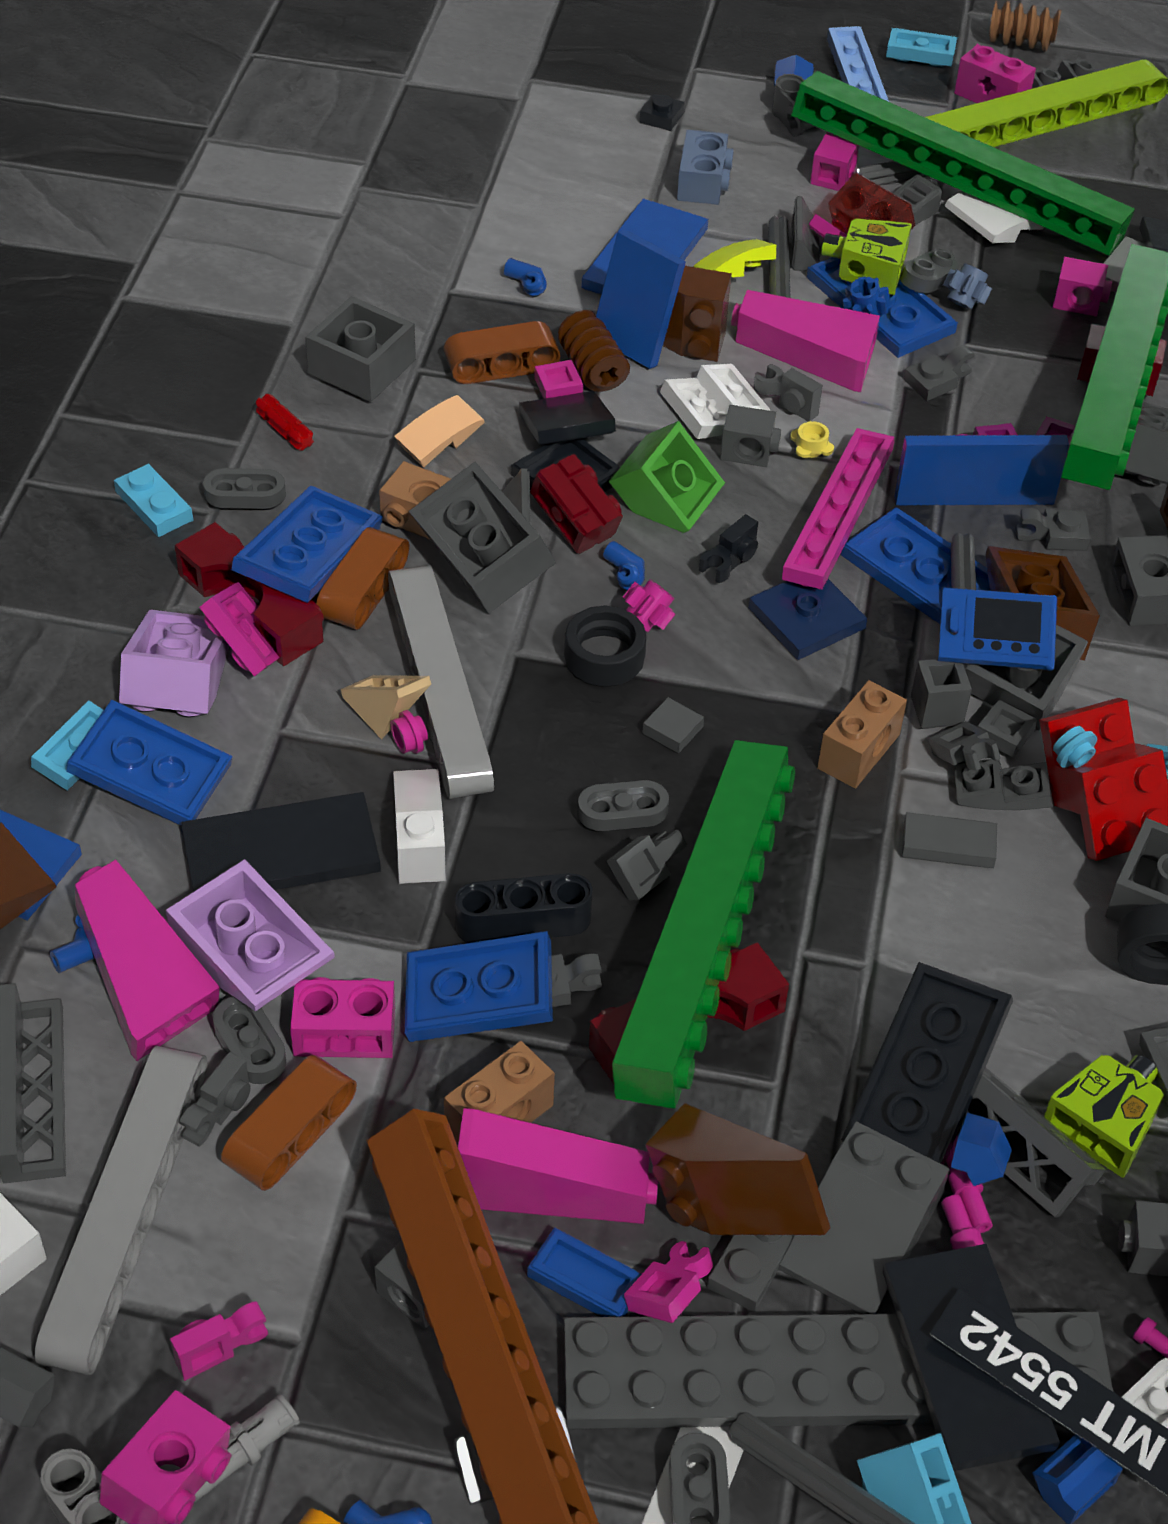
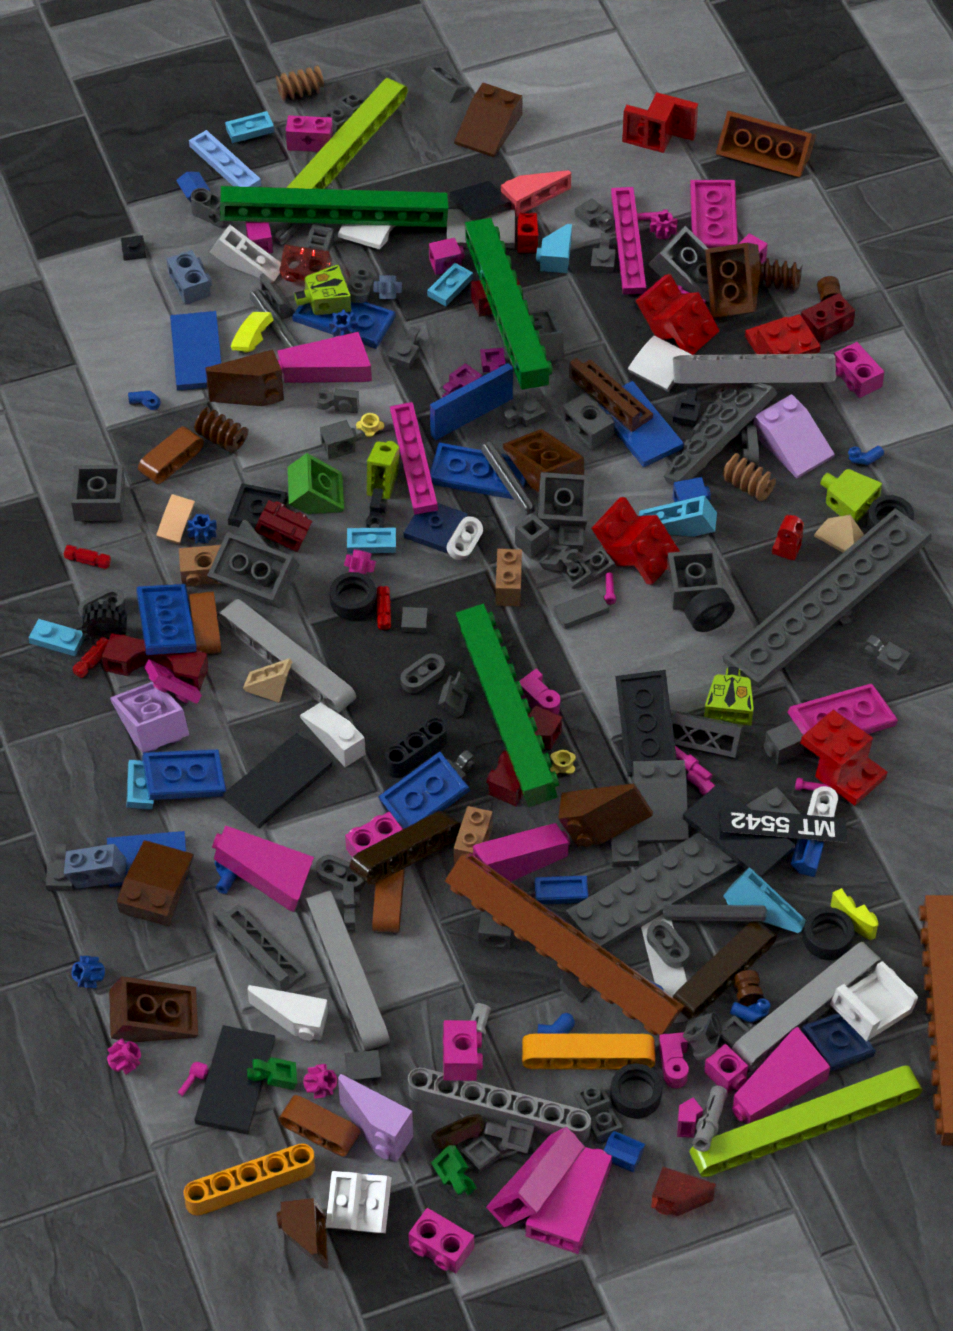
camera: 30 degrees left, 5 degrees up
(163, 549) = (91, 658): none -> red axle
(212, 1341) = (429, 1003): dark pink plate -> none
(221, 499) = (103, 619): none -> black tyre
(247, 936) = (310, 827): lavender slope -> none
(366, 1052) = (405, 847): none -> dark brown beam
(409, 732) = (294, 692): dark pink plate -> none
(462, 452) = (202, 528): none -> blue gear
(558, 379) = (214, 457): dark pink plate -> none
(567, 417) = (236, 477): black tile -> none
(630, 565) = (331, 546): blue arm -> none
(639, 296) = (230, 386): blue tile -> none
(639, 685) = (383, 608): none -> red axle
(670, 1287) = (601, 874): dark pink plate -> none
(695, 585) = (371, 540): none -> medium azure plate
(706, 399) = (301, 426): white slope -> none
(748, 1050) = (562, 756): none -> light yellow plate
(777, 924) = (538, 694): none -> dark pink leg
(782, 496) = (384, 459): none -> lime torso
(795, 167) = (244, 255): none -> white slope
(822, 227) = (289, 286): dark pink tile -> none
(833, 650) = (463, 539): none -> white plate
(981, 1149) = (690, 745): blue piece -> none
(998, 628) = (543, 490): blue container -> none
(1009, 845) = (610, 597): none -> dark pink piece
(1061, 322) = (450, 284): none -> medium azure plate
(1075, 747) = (618, 534): medium azure plate -> none

